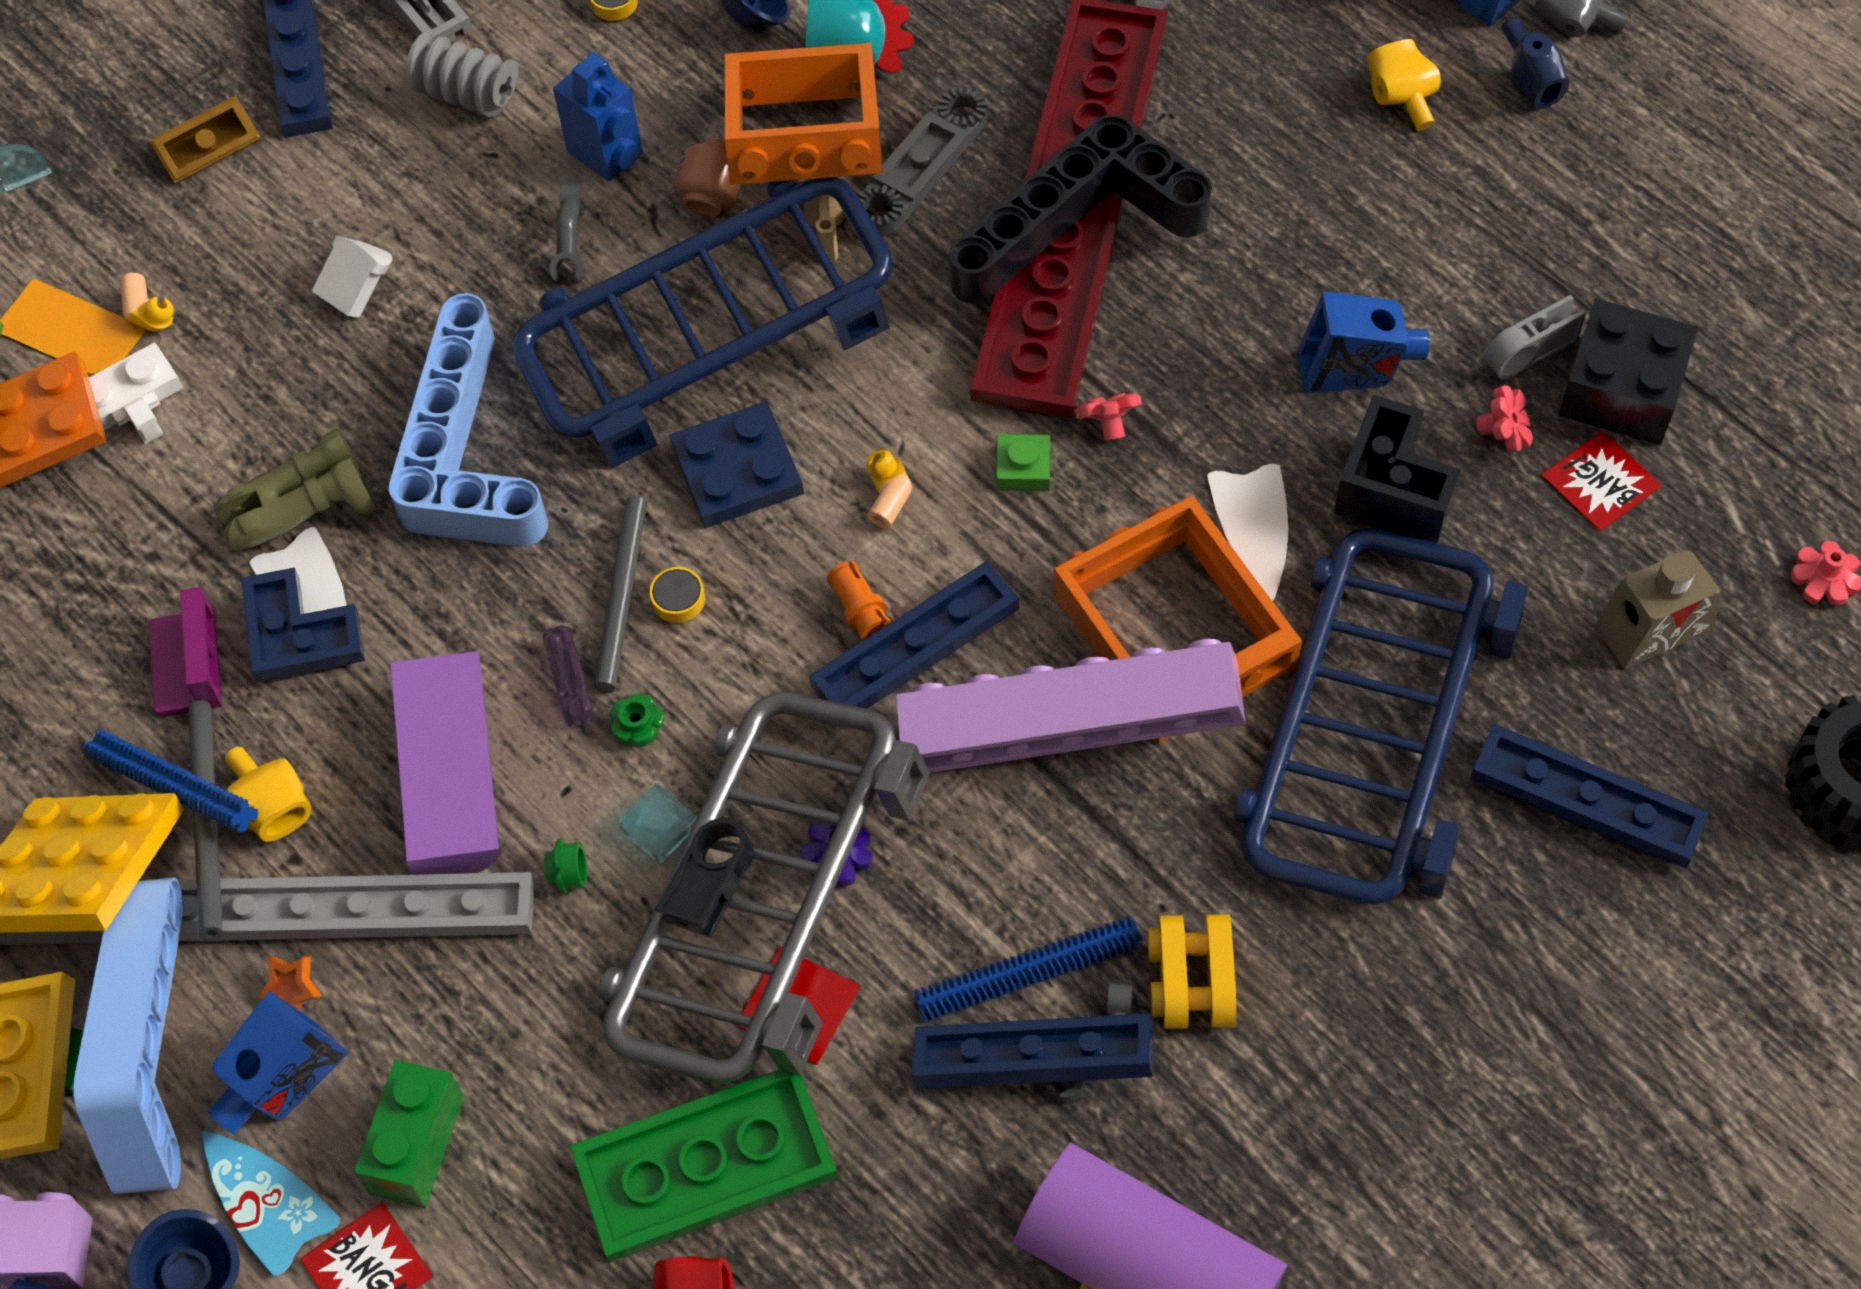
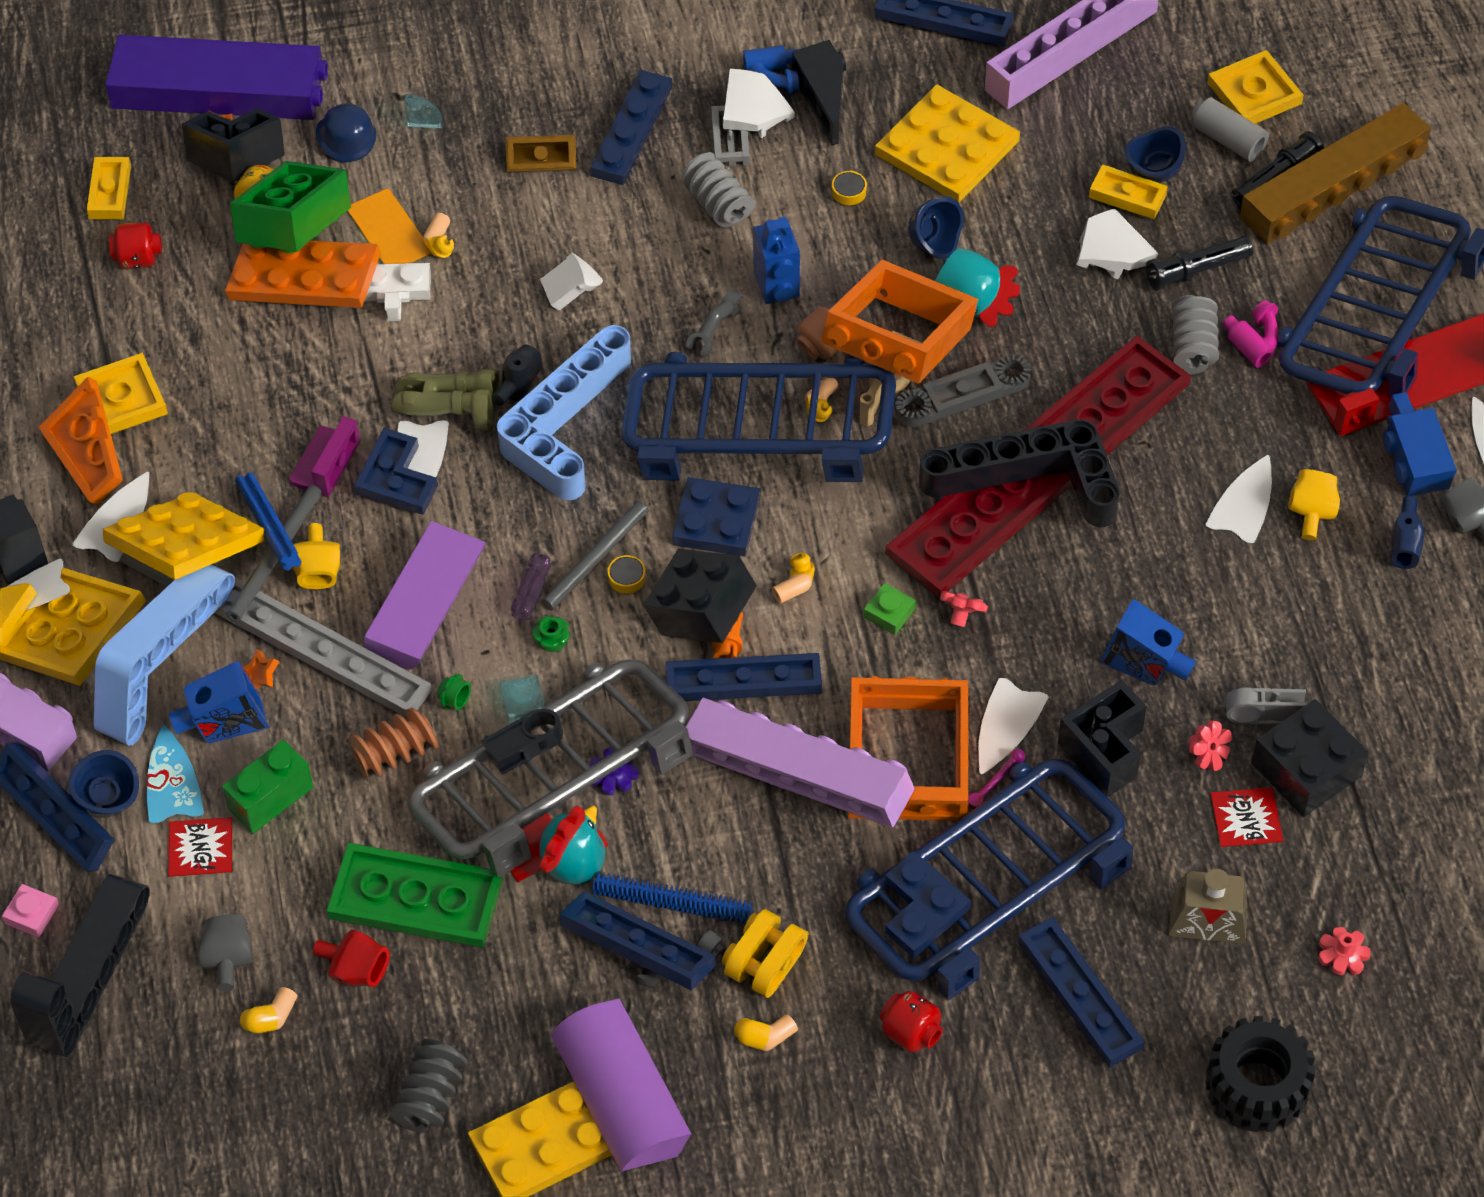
camera: 30 degrees right, 5 degrees down
(368, 420) = (517, 374): none -> black piece
(533, 977) = (392, 741): none -> nougat piece
(751, 264) = (826, 389): none -> arm
(798, 569) = (700, 595): none -> black brick
(866, 980) = (573, 847): none -> teal piece
(1264, 1079) = (764, 1036): none -> arm
(1300, 556) = (1016, 757): none -> magenta hinge
(1324, 124) = (1244, 502): none -> white sticker
(1349, 786) = (931, 908): none -> dark blue plate
(1433, 952) = (911, 1021): none -> red head

